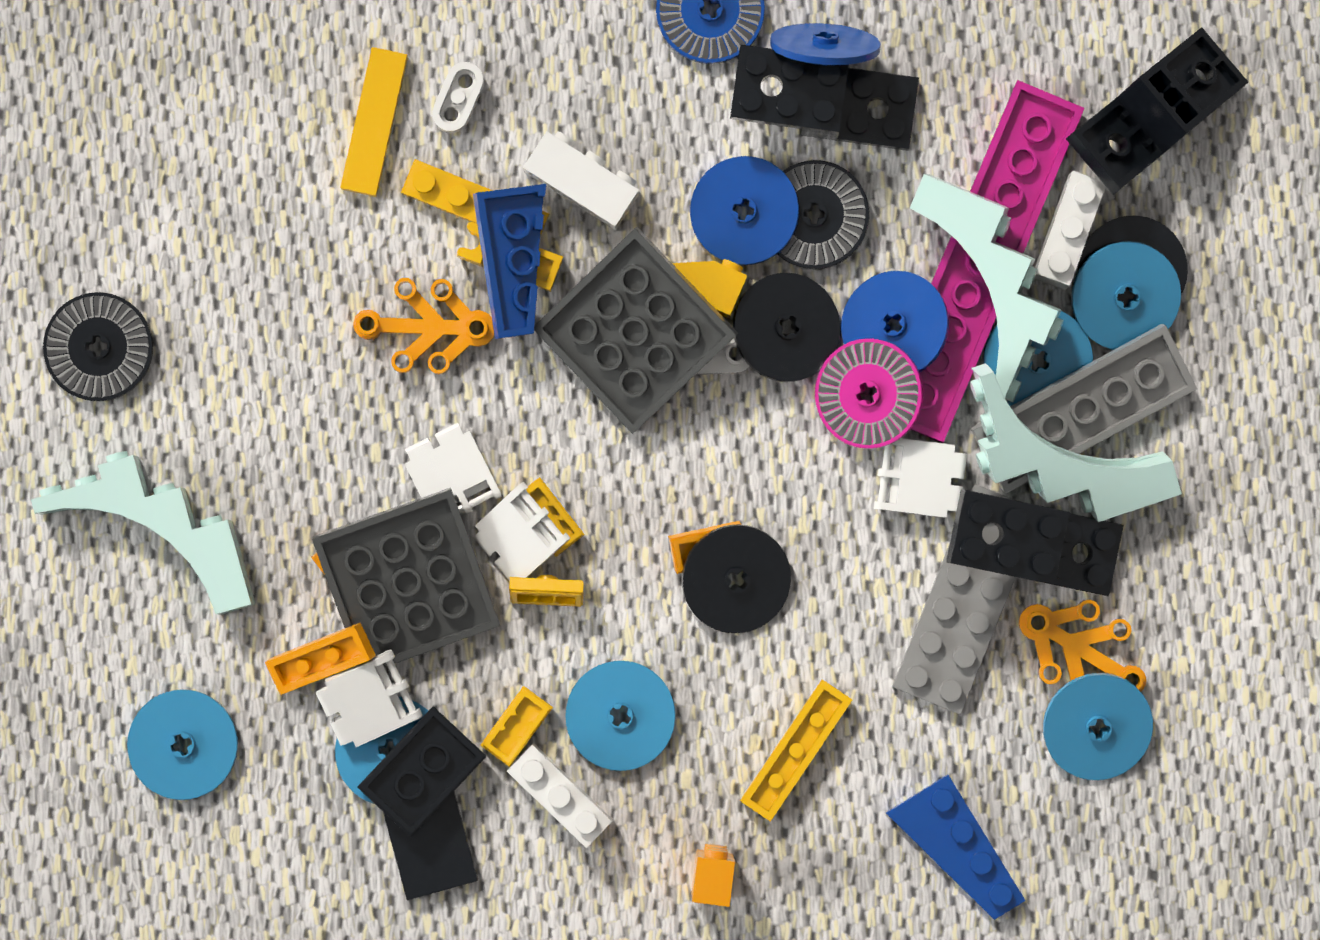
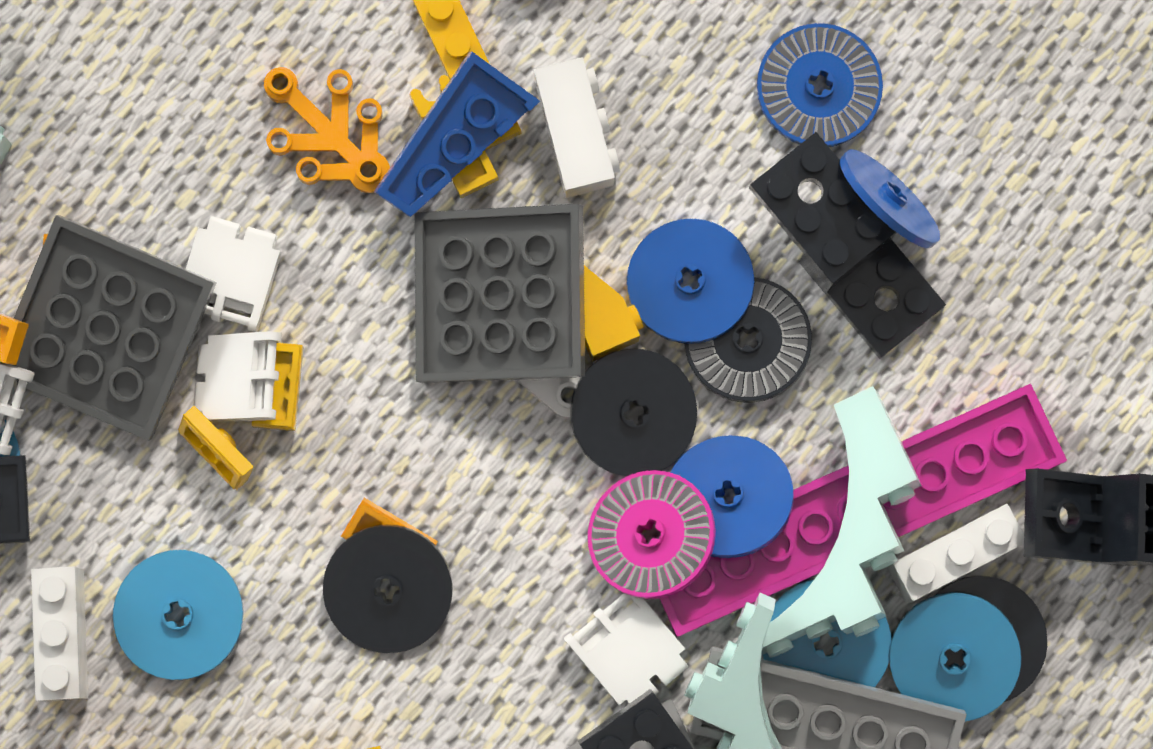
camera: 35 degrees right, 5 degrees down
(516, 726) = (81, 540): yellow plate -> none

